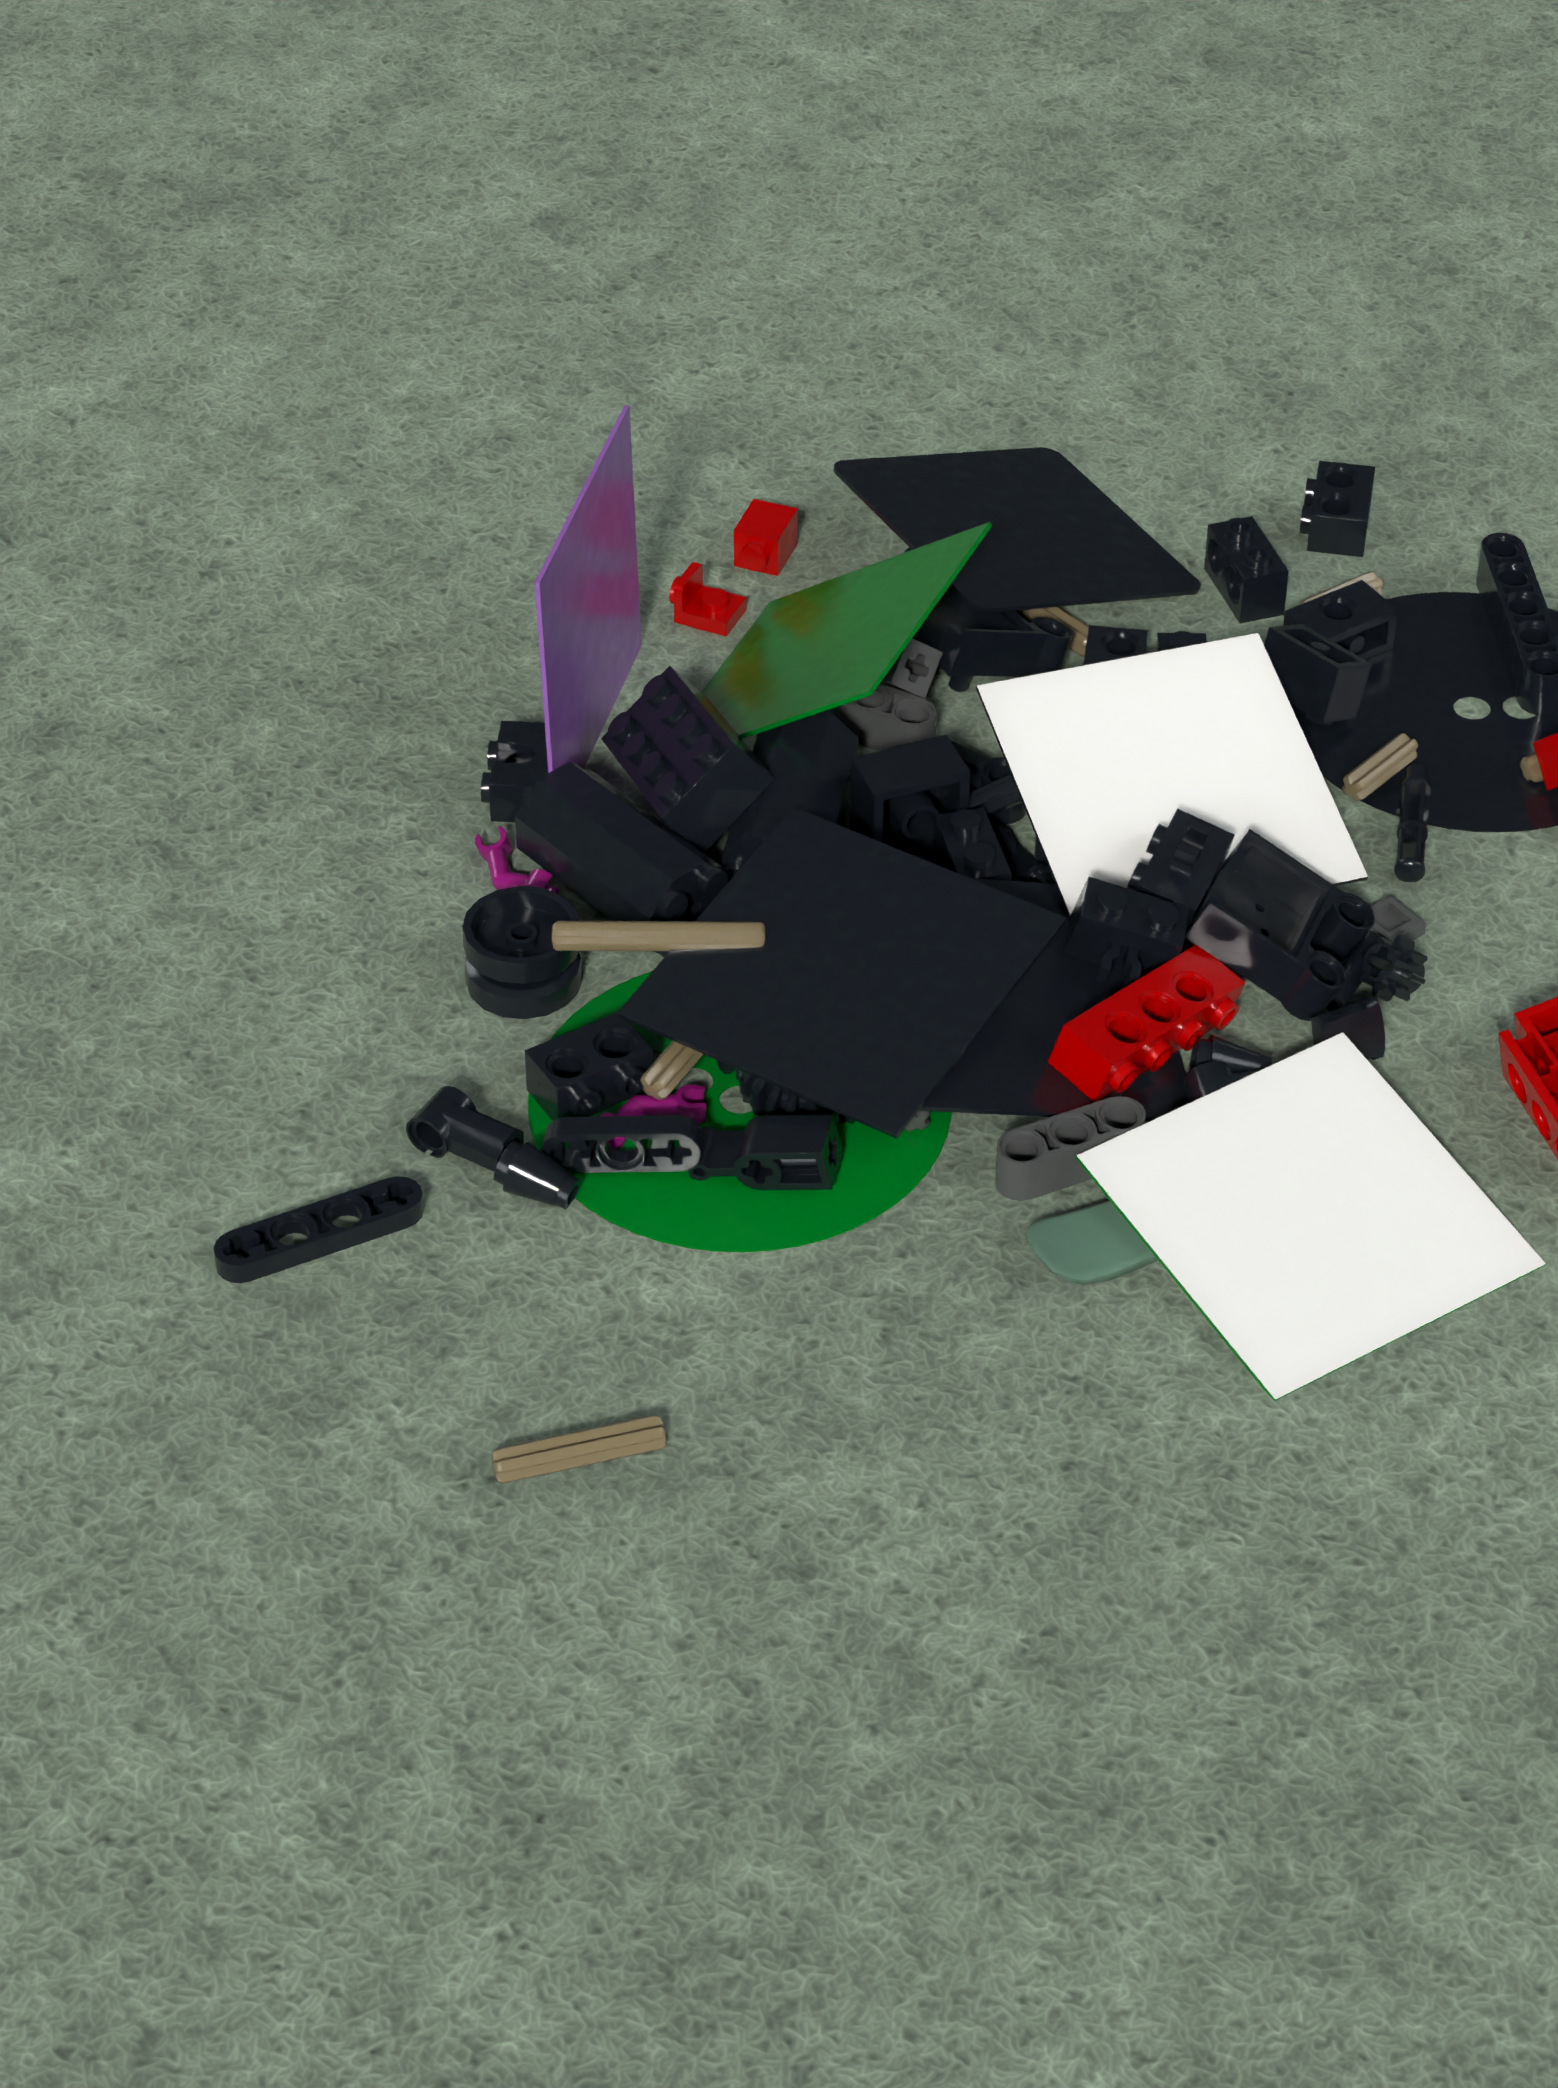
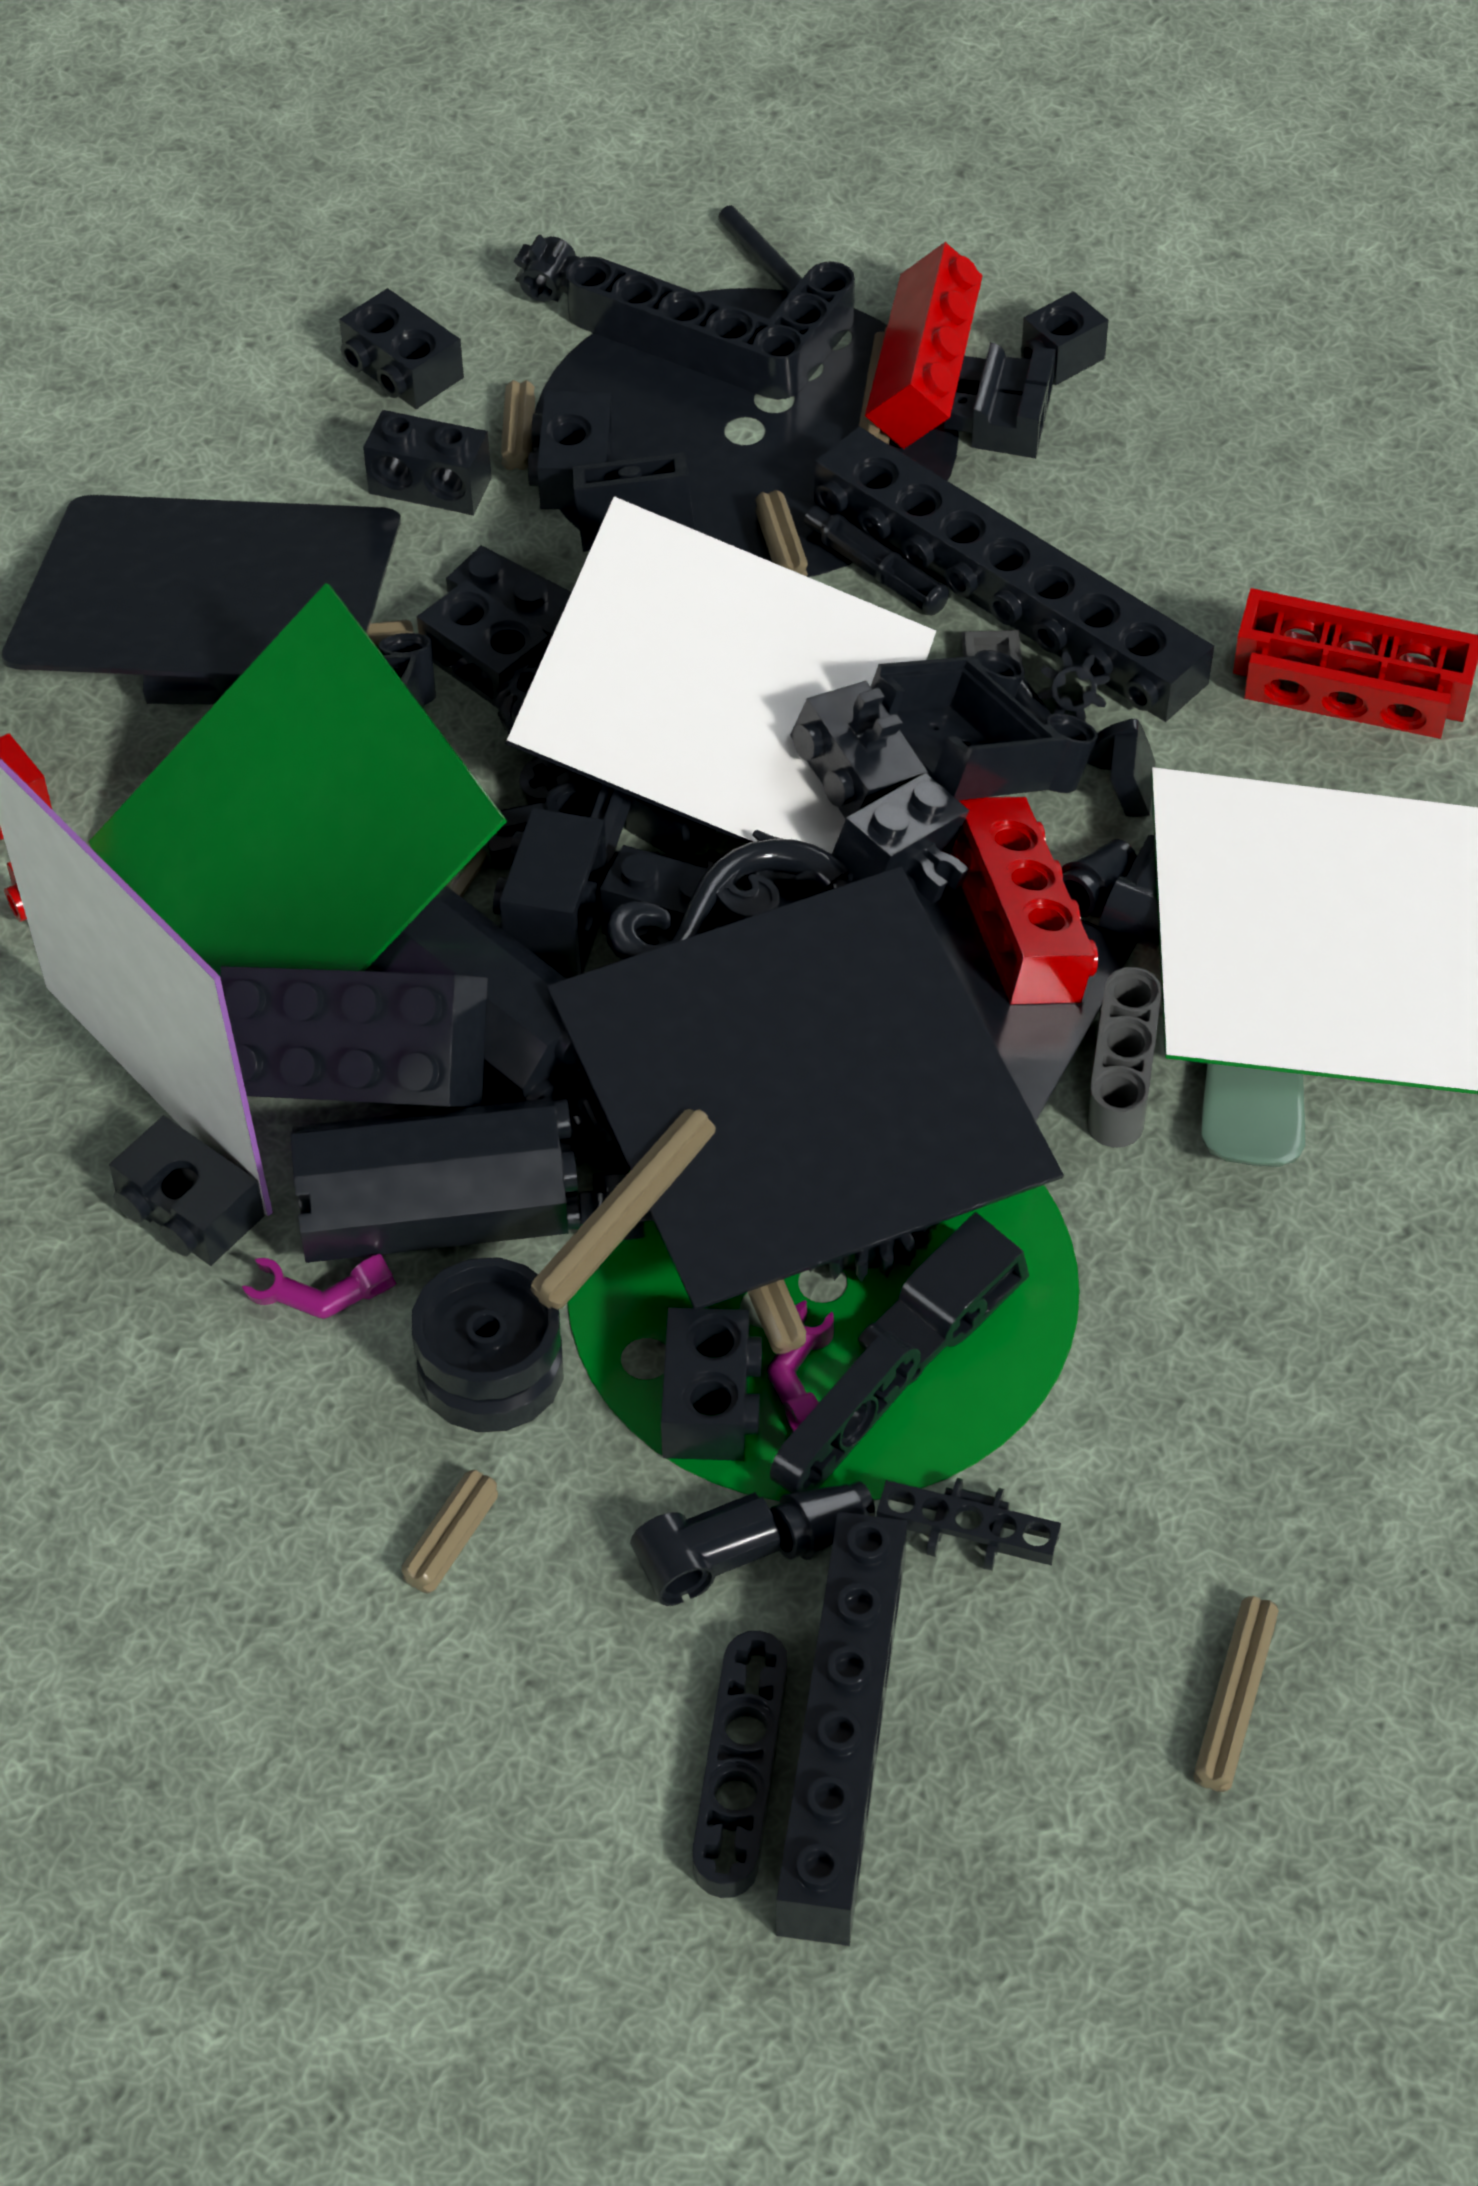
camera: 55 degrees left, 10 degrees up
(377, 1254) = (841, 1731): none -> black brick
(379, 1017) = (449, 1531): none -> dark tan axle
(596, 1244) = (991, 1509): none -> black piece
(981, 857) = (717, 889): none -> black plant
(1468, 893) = (1012, 573): none -> black brick
(1496, 520) = (544, 268): none -> black gear

